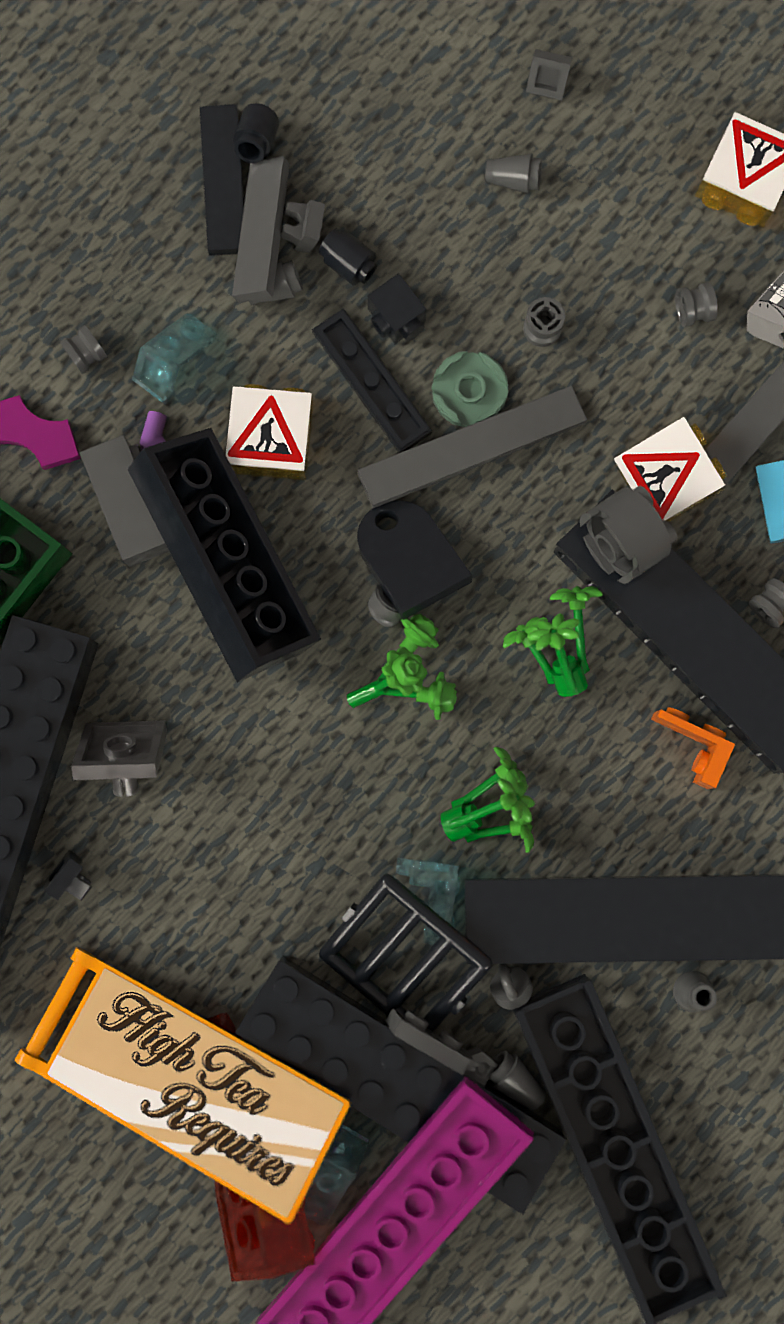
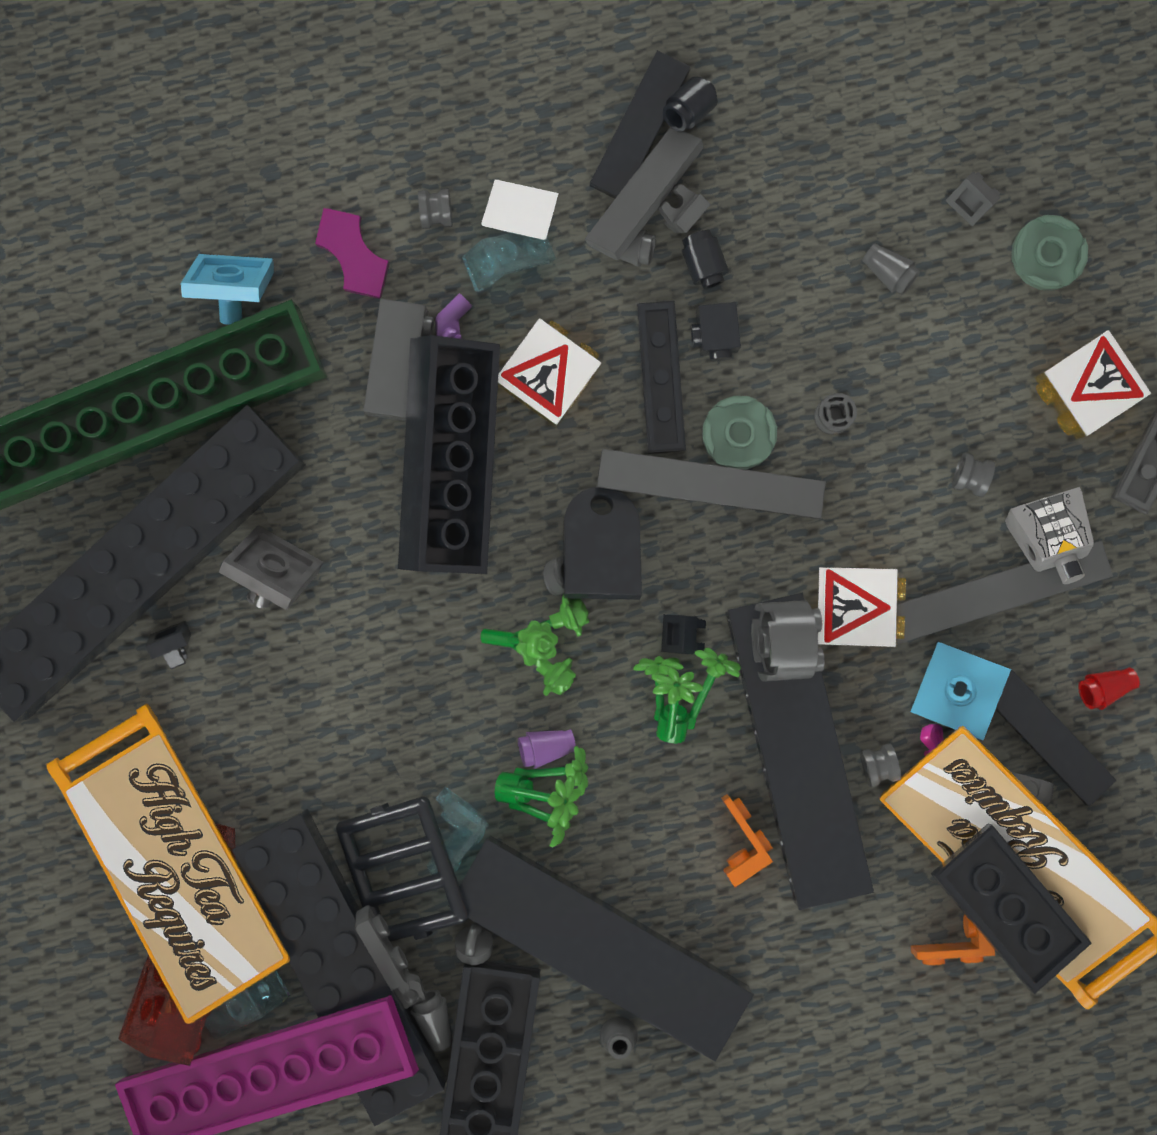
camera: 30 degrees right, 5 degrees up
(159, 307) = (520, 209): none -> white sticker
(464, 768) = (545, 746): none -> medium lavender cone
(526, 592) = (680, 634): none -> black tile
(639, 97) = (1046, 264): none -> sand green tile

